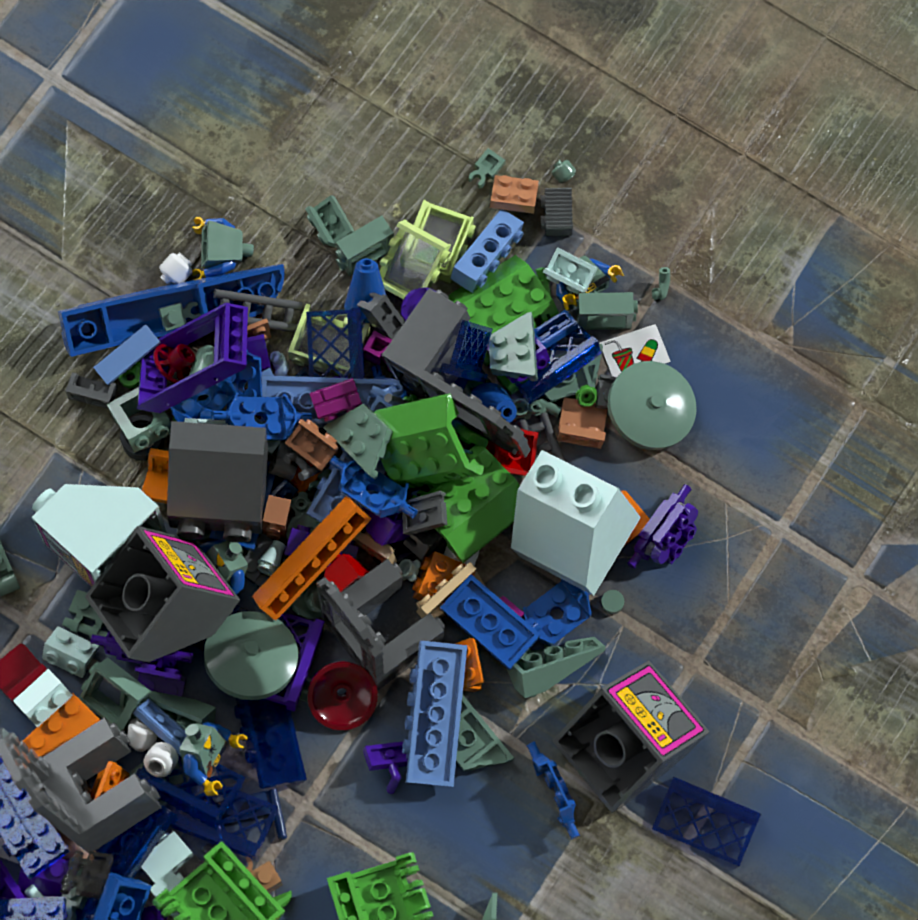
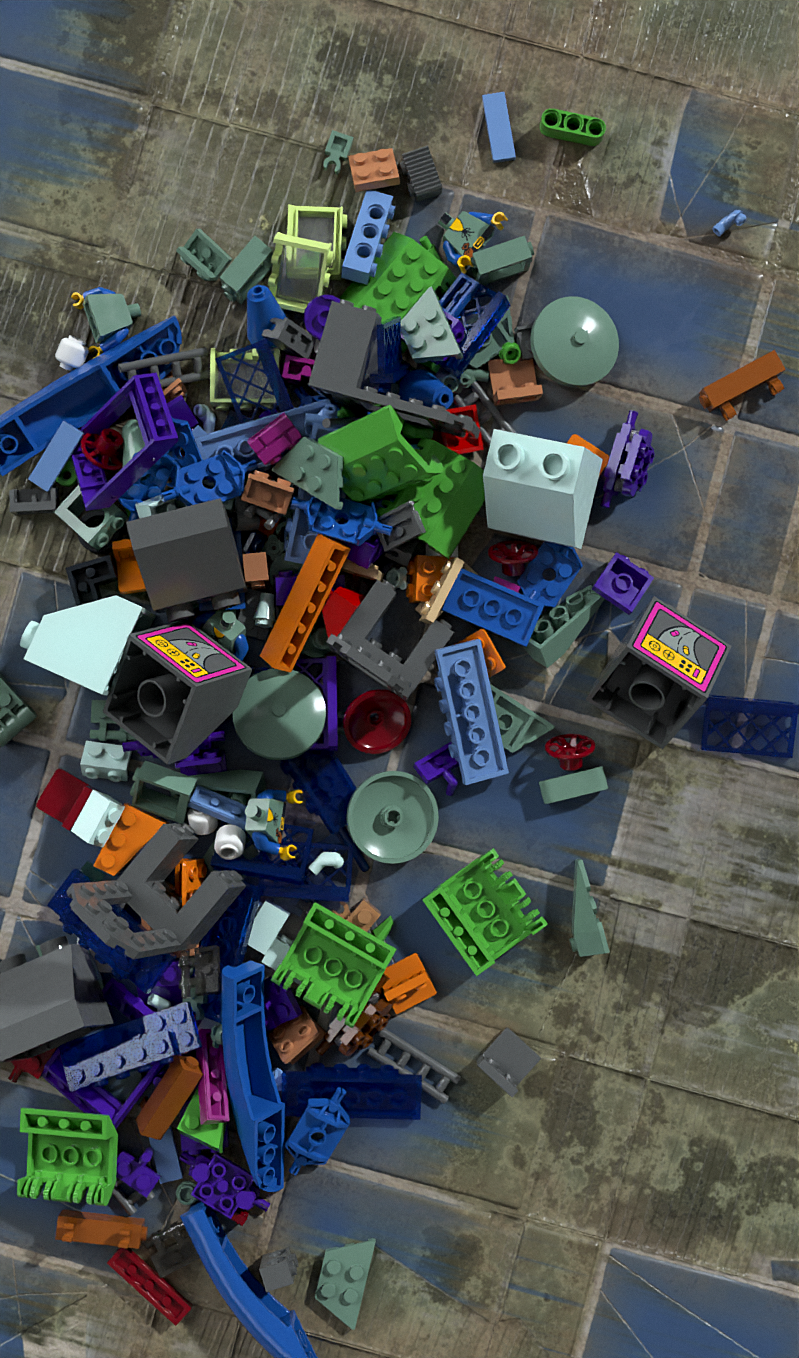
camera: 25 degrees left, 15 degrees up
(121, 472) = (88, 576): none -> black brick
(175, 315) = (88, 401): sand green plate -> none
(247, 809) = (326, 859): none -> light aqua arm
(325, 791) = (392, 817): none -> sand green dish
(513, 821) = (573, 785): none -> sand green beam
(520, 789) = (571, 753): none -> dark red wheel
(526, 587) = (513, 559): none -> dark red wheel
(554, 780) = (611, 750): blue plate -> none
(563, 171) = (412, 129): sand green piece -> none
(571, 271) = (455, 233): light aqua bracket -> none
(612, 601) = (597, 546): sand green tile -> none
(624, 641) = (622, 583): none -> dark purple plate
(634, 348) = (538, 291): white sticker -> none
(645, 193) = (498, 127): none -> medium blue tile
(664, 283) = (546, 214): sand green arm -> none
(719, 222) = (582, 122): none -> bright green beam
(800, 493) = (742, 381): none -> dark orange brick
(840, 341) = (725, 223): none -> medium blue arm

